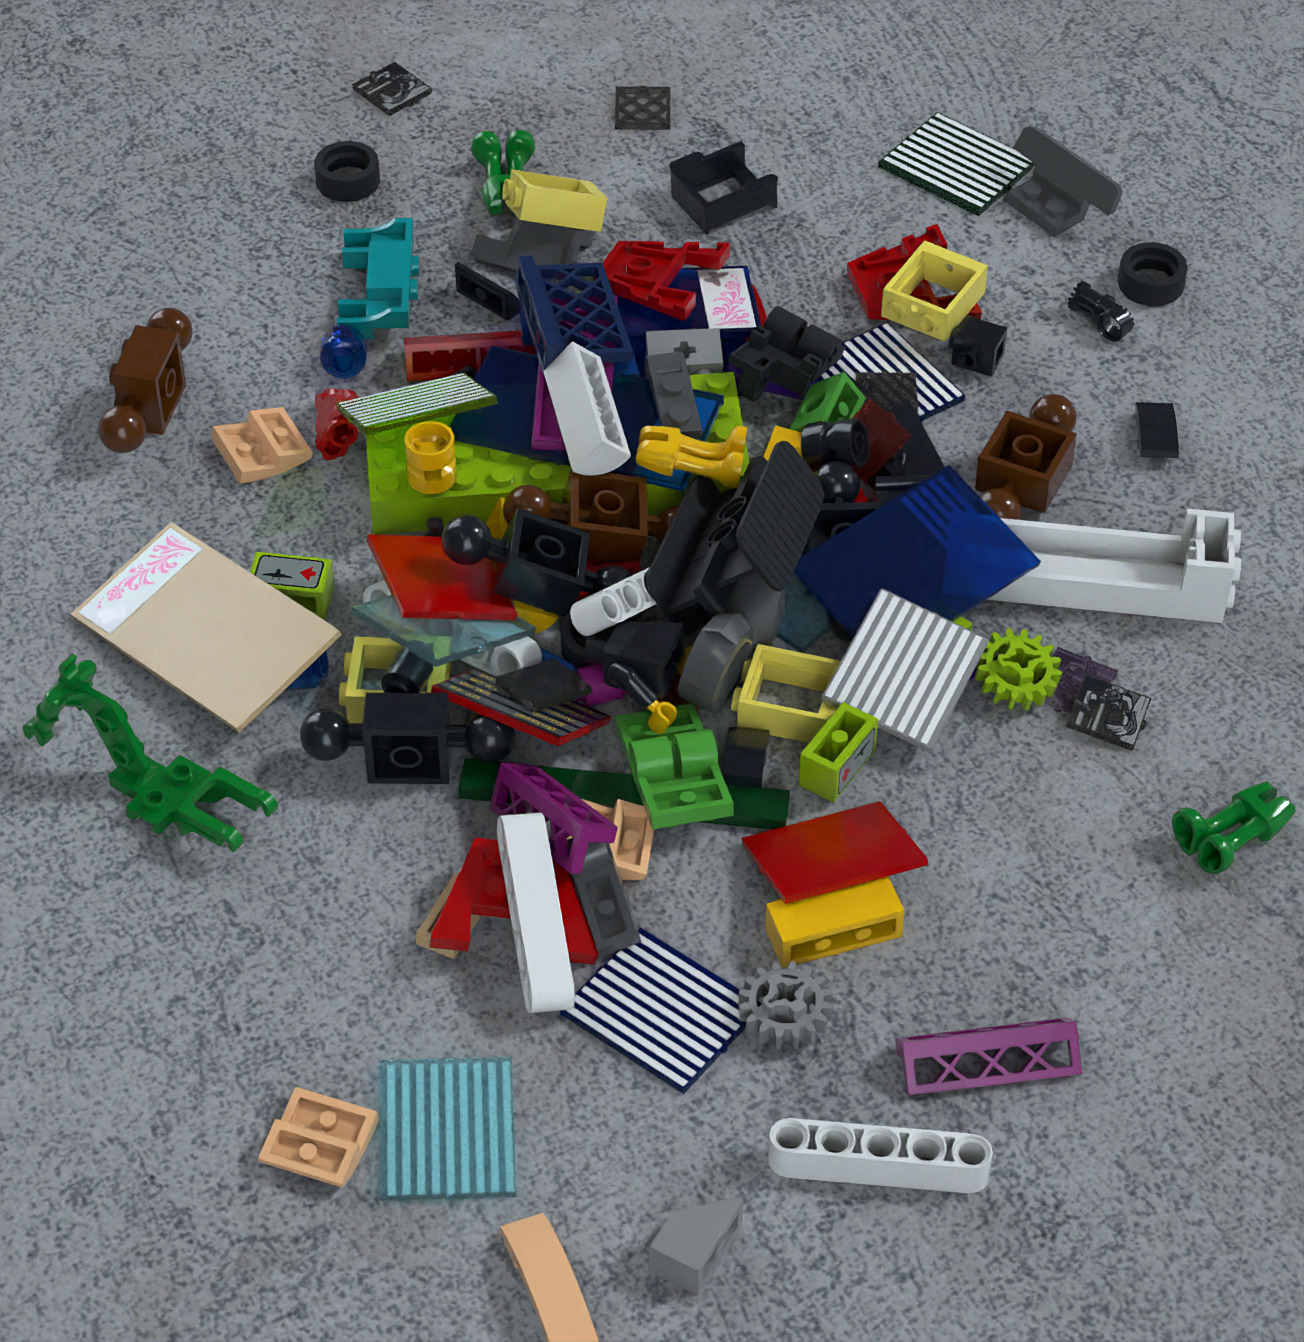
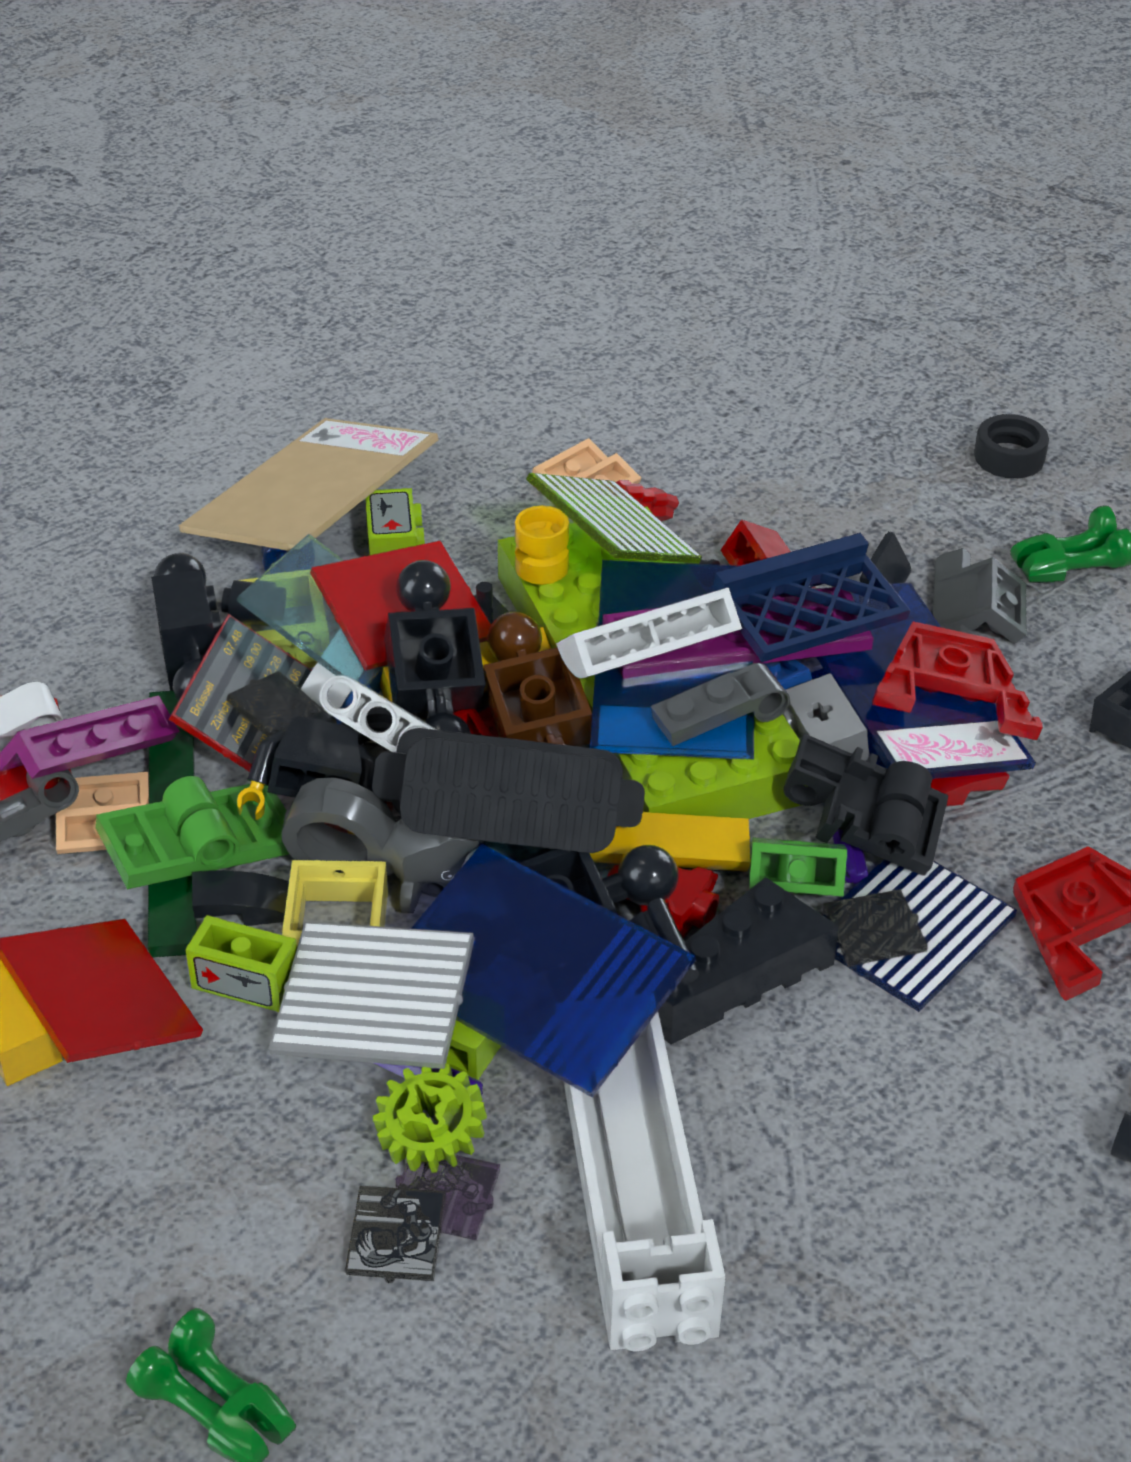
camera: 75 degrees right, 5 degrees down
(146, 381) = (618, 378): reddish brown brick -> none
(157, 791) = (128, 509): green piece -> none
(343, 351) = (732, 494): clear blue head -> none
(390, 274) = (850, 497): teal bracket -> none
(555, 200) = (1055, 594): light yellow window -> none
(667, 449) = (633, 715): yellow piece -> none
(842, 441) = (707, 858): black wheel -> none
(884, 436) = (739, 893): clear red piece -> none
(931, 263) = (1063, 893): light yellow window -> none
(978, 345) = (1004, 997): black brick -> none
(1028, 457) = (797, 1069): reddish brown brick -> none
(1156, 430) = (935, 1214): black slope -> none

